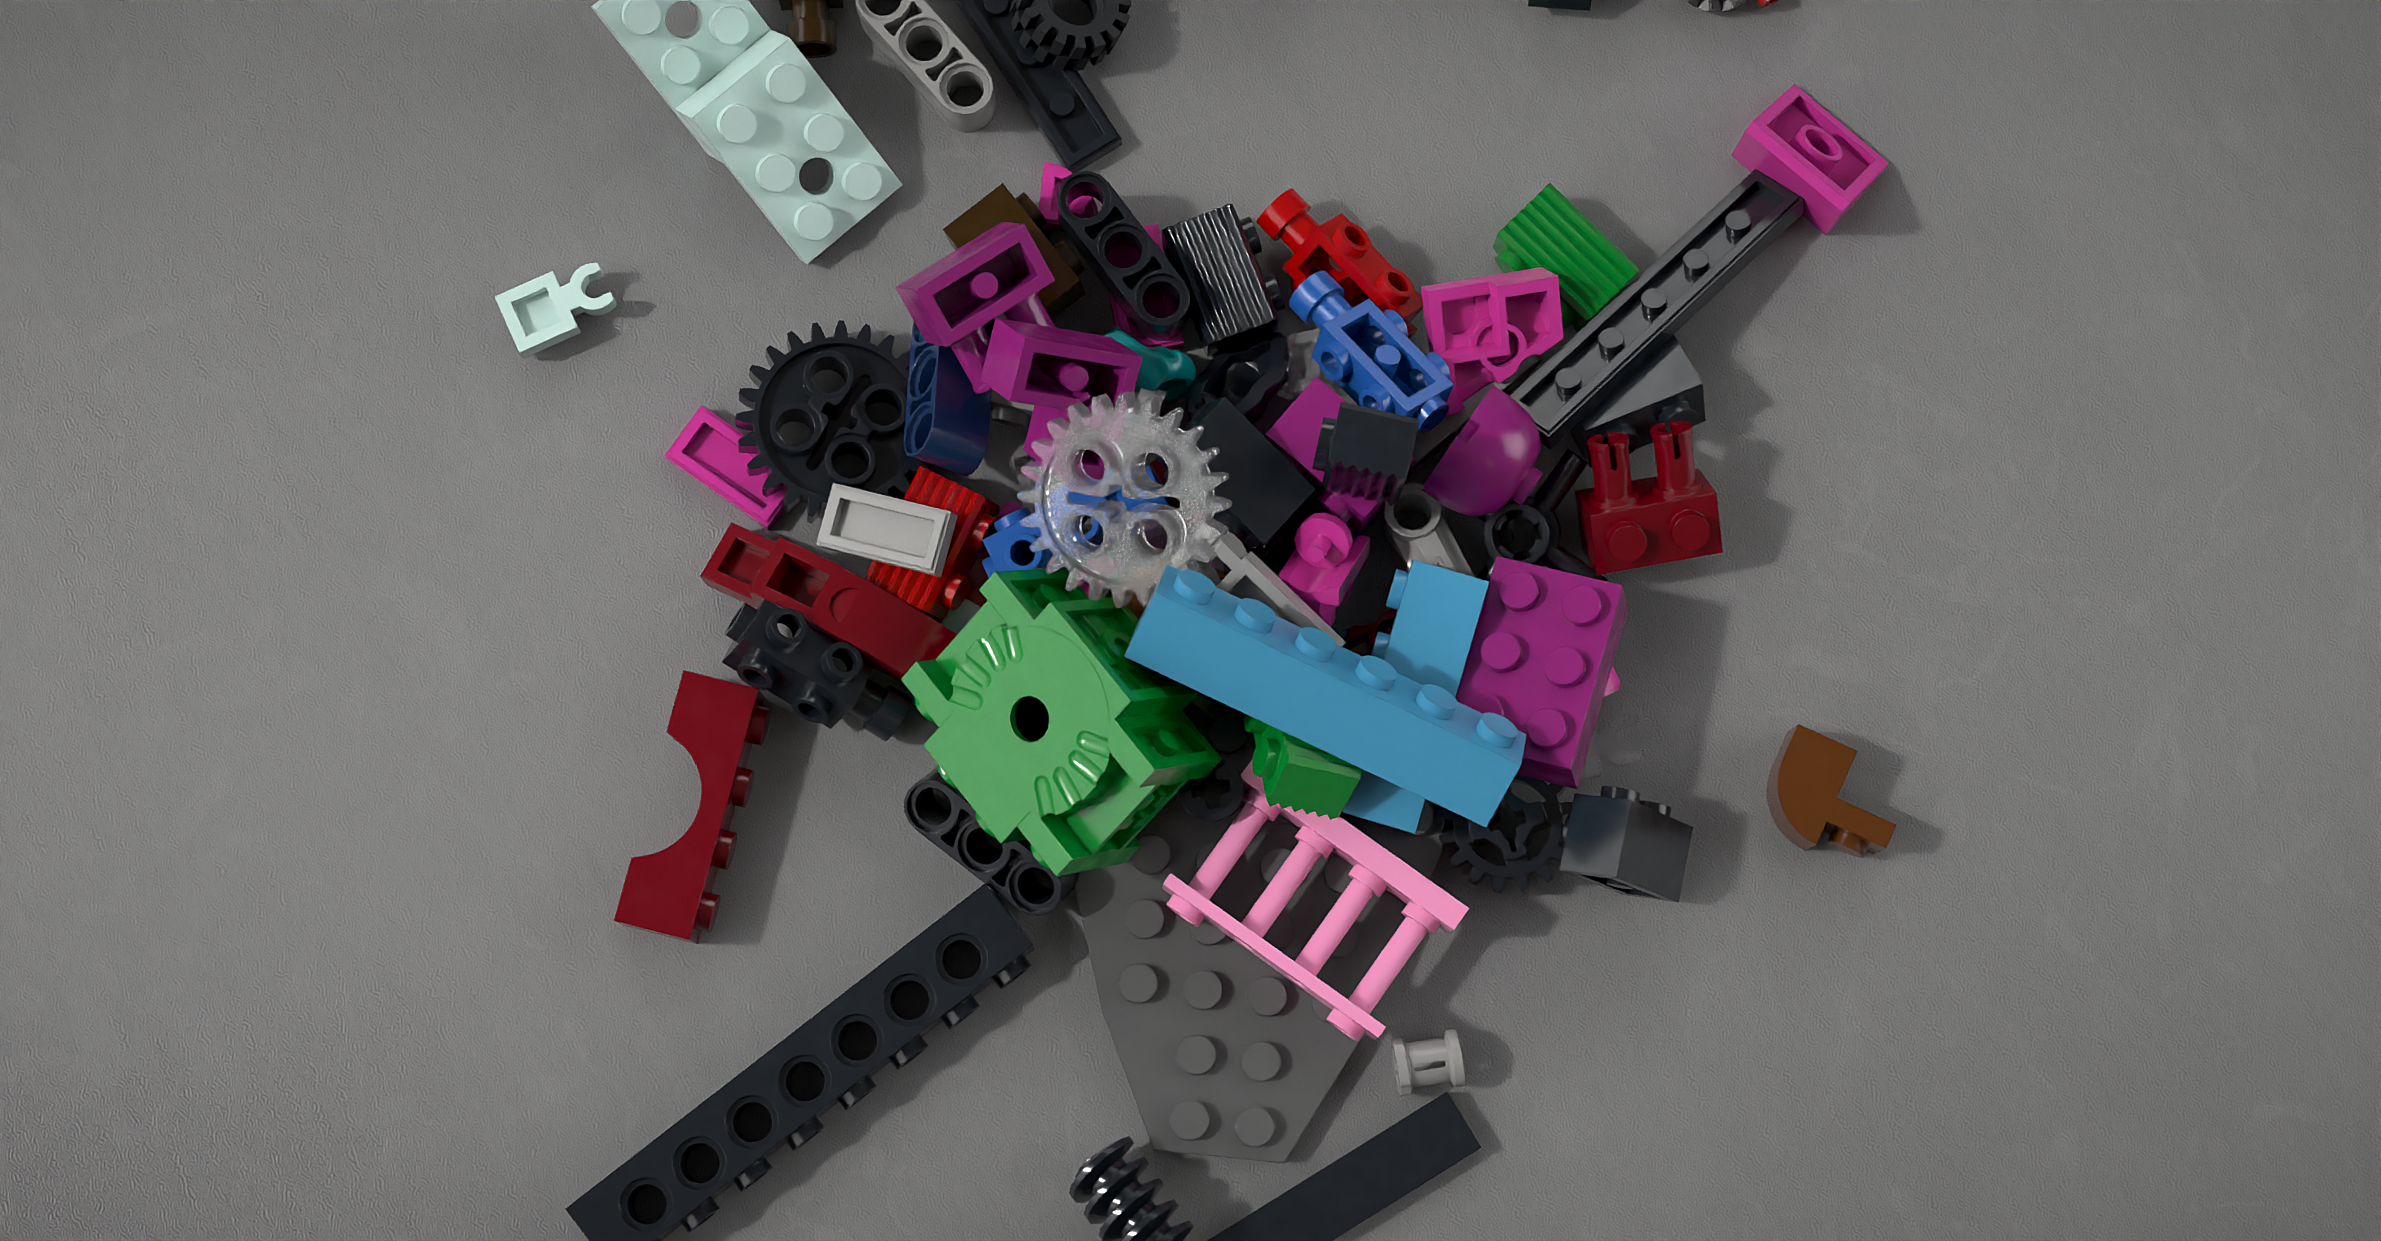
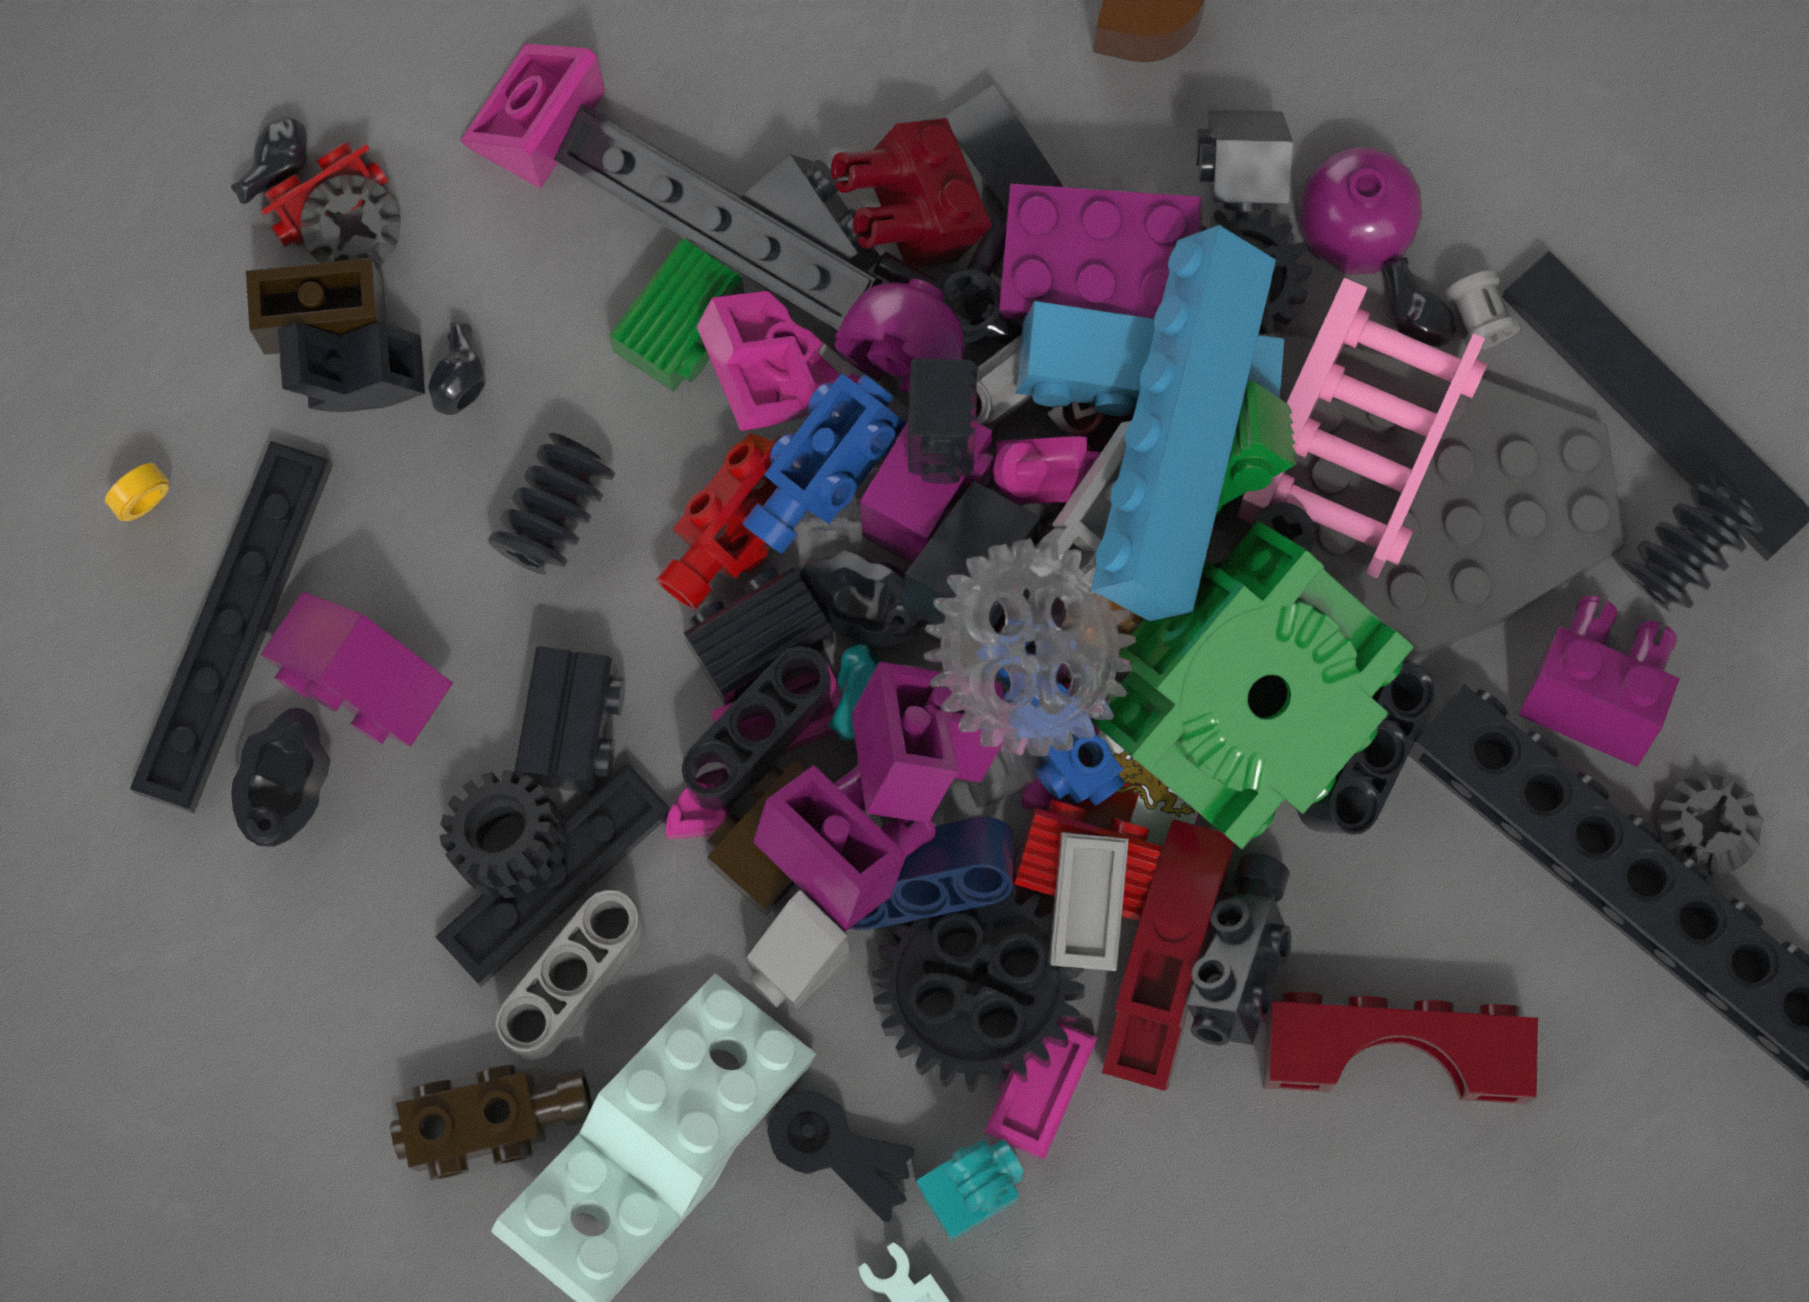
camera: 95 degrees left, 5 degrees down
(647, 378) = (972, 1186): none -> teal brick
(731, 248) = (813, 1134): none -> black piece
(859, 1200) = (1682, 832): none -> dark grey gear
(893, 251) = (797, 953): none -> light grey slope
(999, 1083) = (1600, 693): none -> magenta brick
(1171, 88) = (568, 719): none -> black brick
(1388, 107) = (550, 504): none -> black piece
(1441, 997) = (1416, 310): none -> black animal
(1542, 42) = (459, 375): none -> black animal
(1560, 963) = (1359, 210): none -> magenta cylinder
(1686, 607) = (999, 145): none -> black slope

